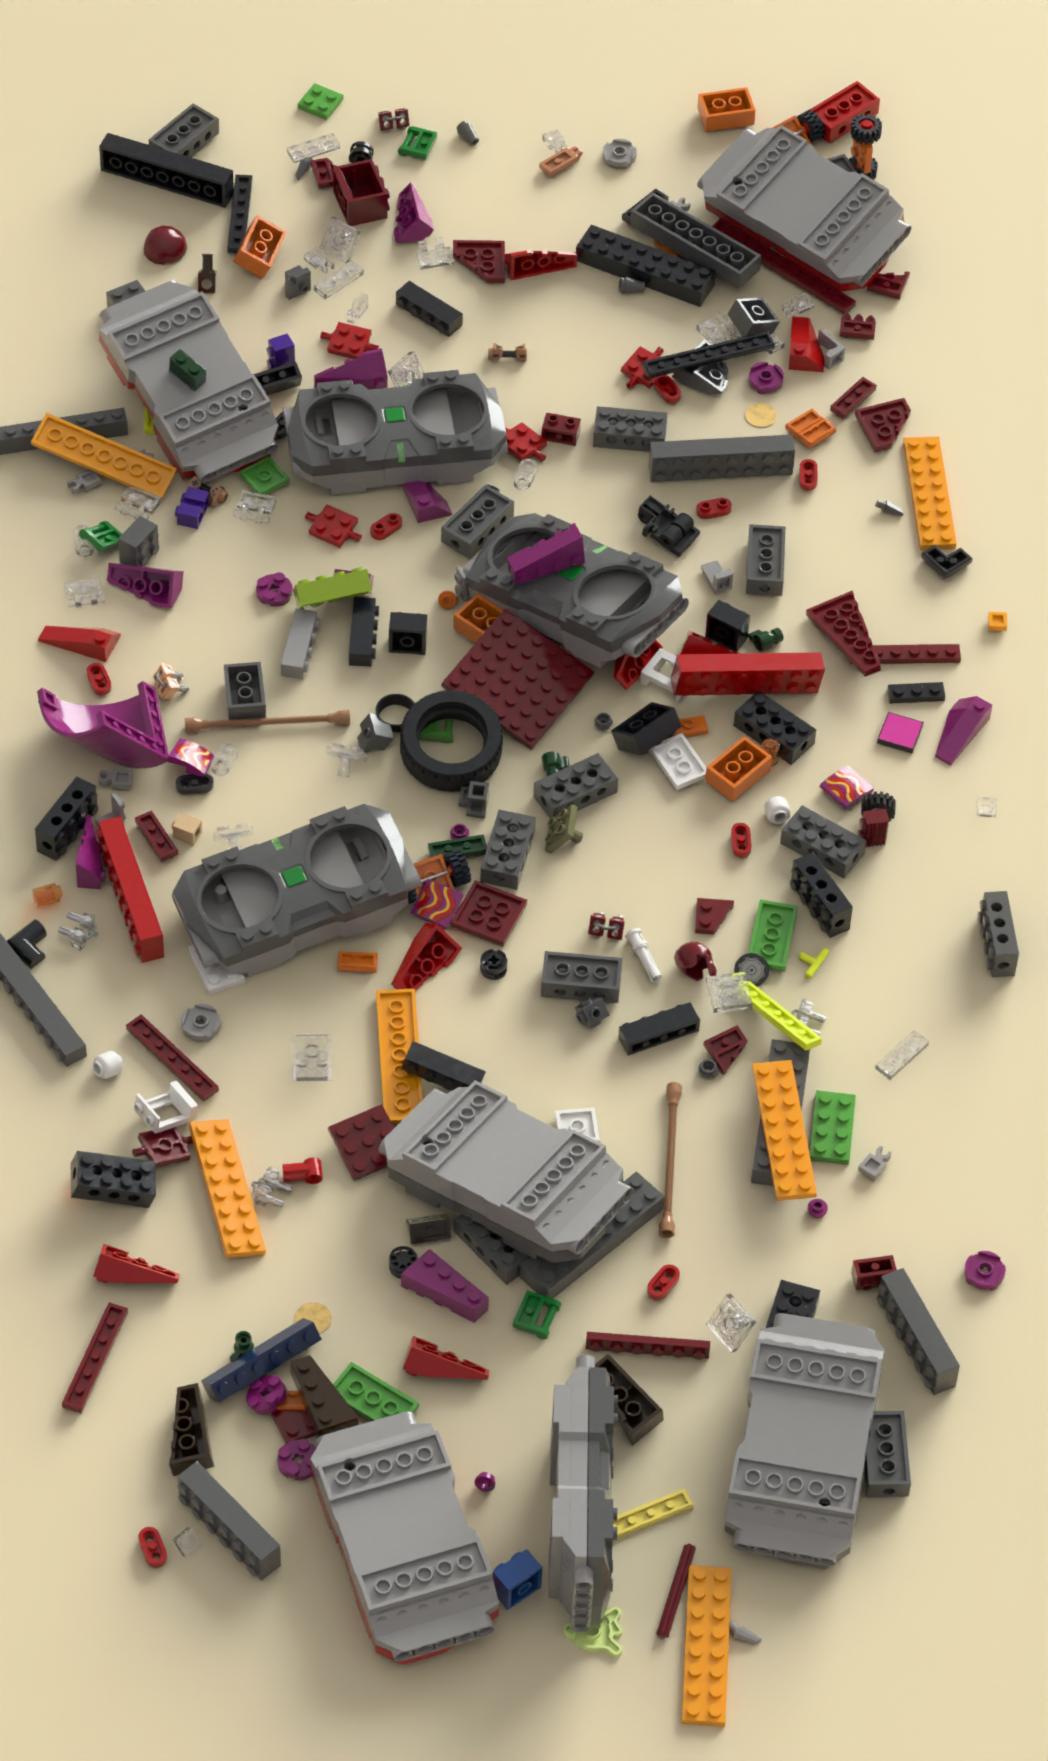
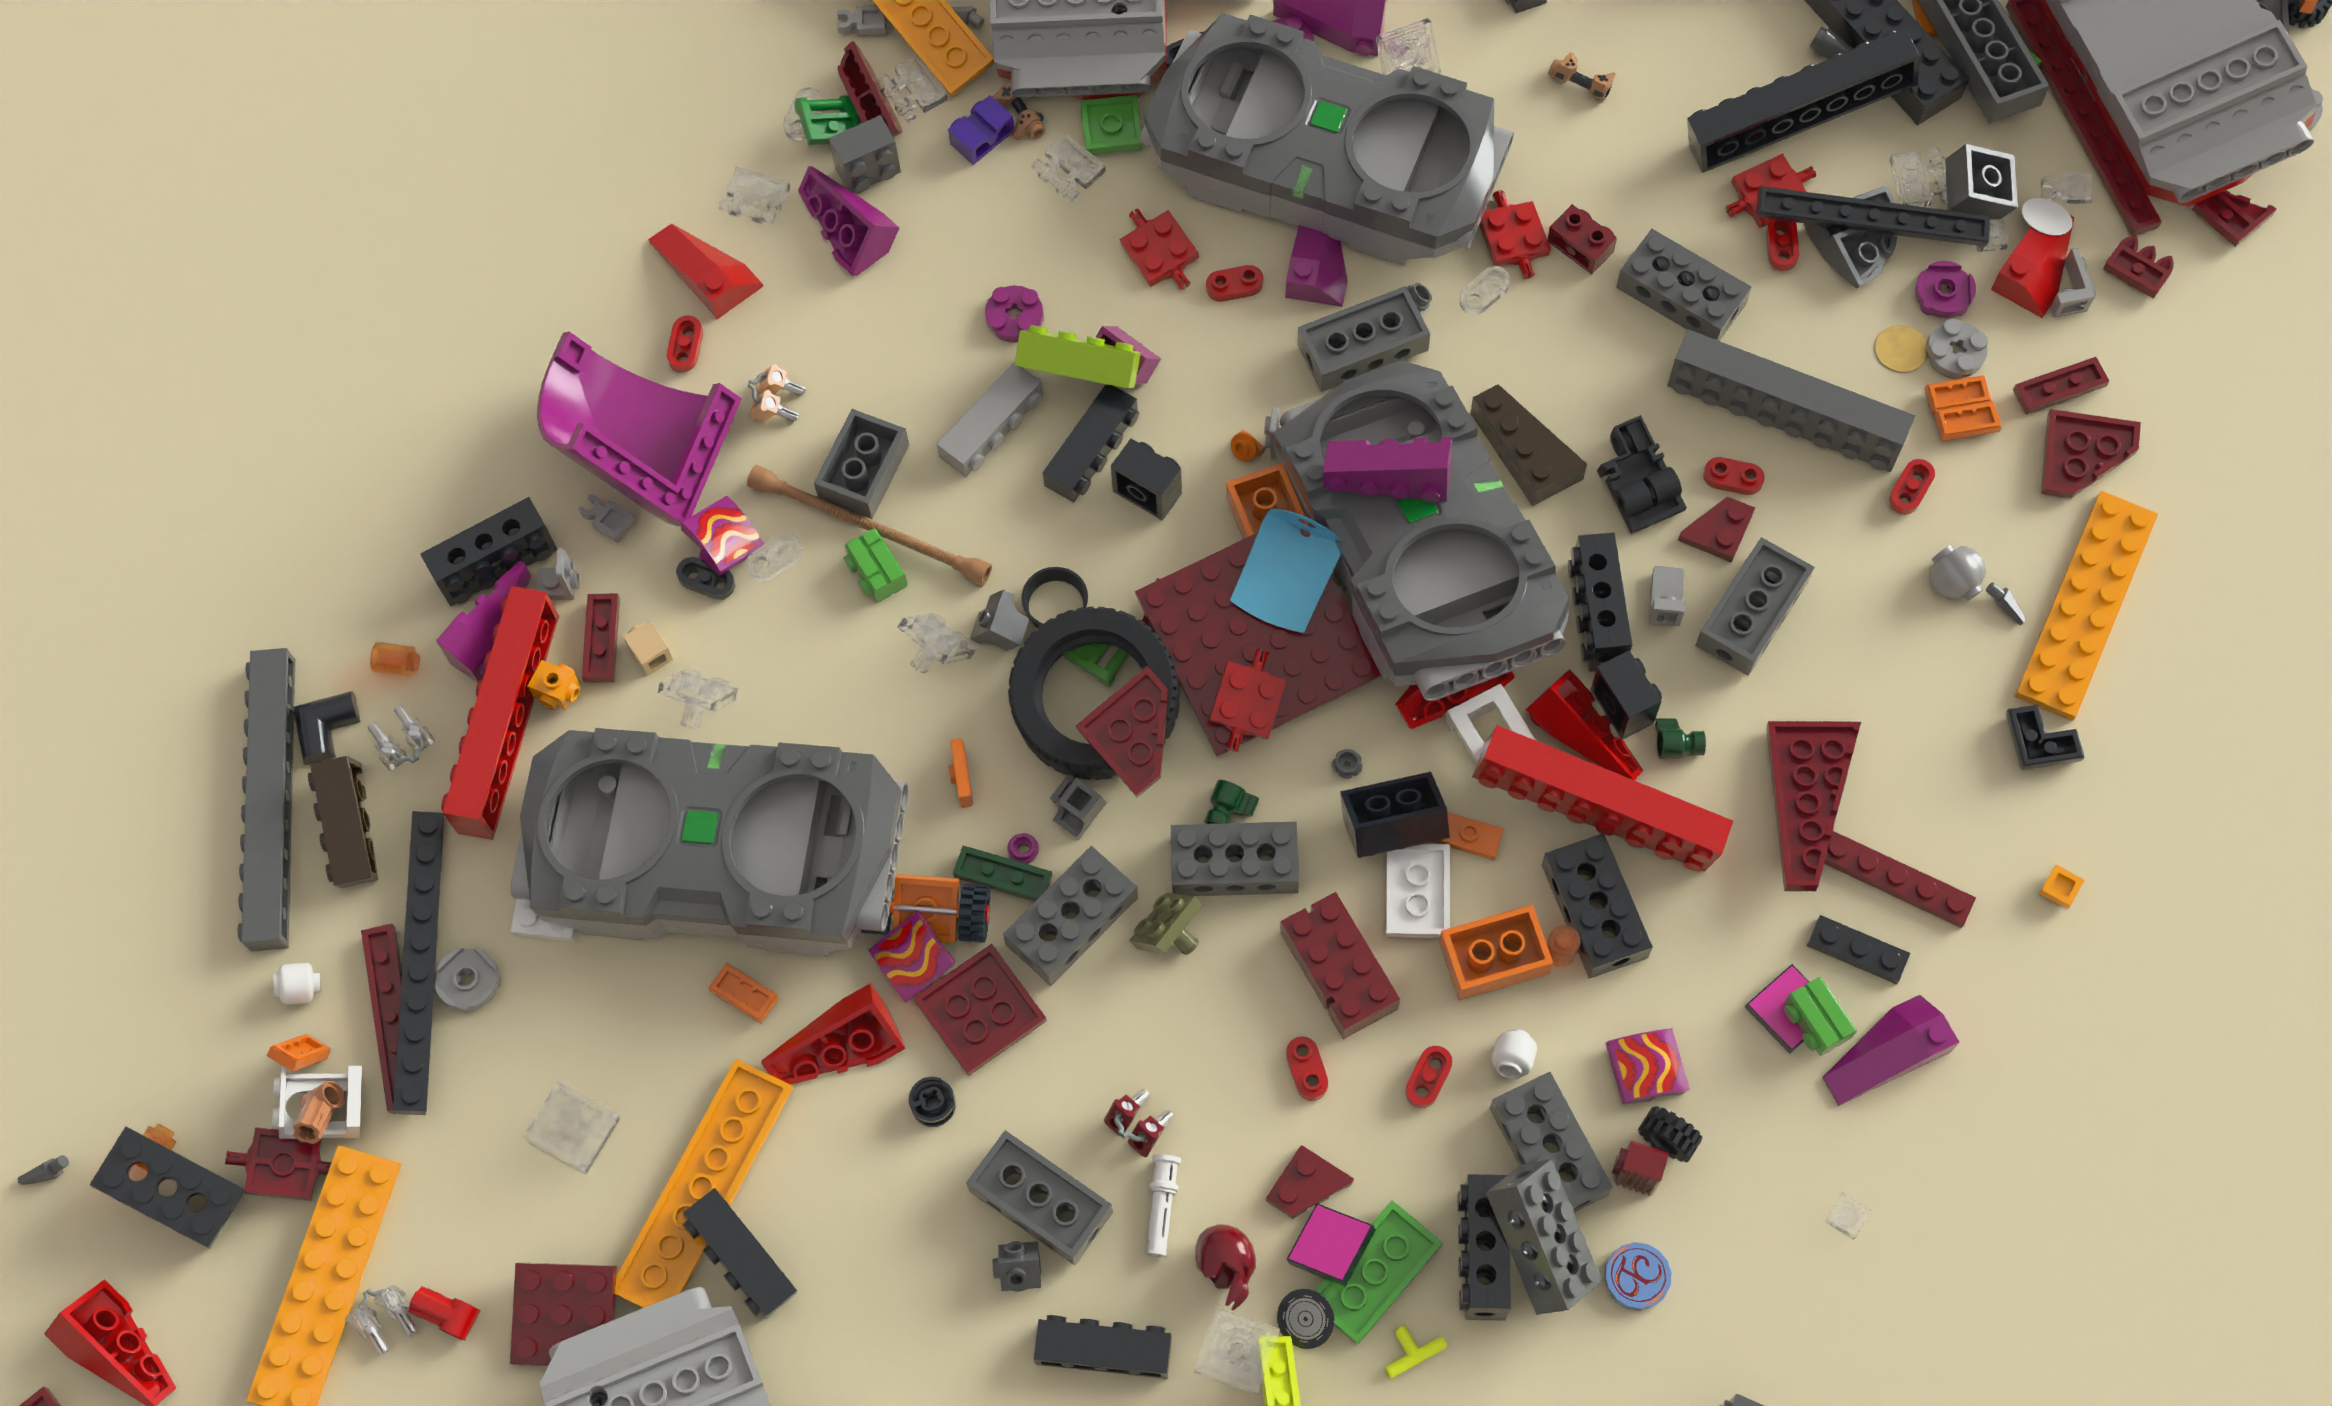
camera: 35 degrees right, 15 degrees up
(30, 1213) = (46, 1171): none -> dark grey bar
(78, 977) = (343, 821): none -> dark brown wedge
(110, 512) = (865, 89): none -> dark red brick
(136, 1089) = (299, 1052): none -> orange plate
(150, 866) = (554, 685): none -> light orange brick
(168, 1109) = (317, 1110): none -> nougat piece
(169, 1024) = (418, 964): none -> black plate
(285, 737) = (875, 565): none -> bright green brick
(402, 811) = (959, 773): none -> orange plate
(488, 741) = (1131, 730): none -> dark red plate
(520, 639) = (1286, 570): none -> medium azure piece
(534, 710) = (1247, 700): none -> red plate
(607, 533) = (1527, 447): none -> dark brown wedge
(637, 313) = (1803, 100): none -> black brick
(659, 806) = (1339, 965): none -> dark red piece
(675, 865) = (1307, 1067): none -> red plate
(692, 586) = (1600, 599): none -> black brick
(723, 535) = (1719, 529): none -> dark red wing
(742, 931) = (1331, 1244): none -> dark pink tile
(795, 396) = (1961, 334): none -> light grey plate
(796, 322) = (2047, 216): none -> white sticker
(848, 870) = (1544, 1237): none -> dark grey brick
(857, 503) = (1957, 573): none -> light grey plant
(902, 879) = (1637, 1276): none -> medium blue tile
(917, 725) = (1819, 1017): none -> bright green brick

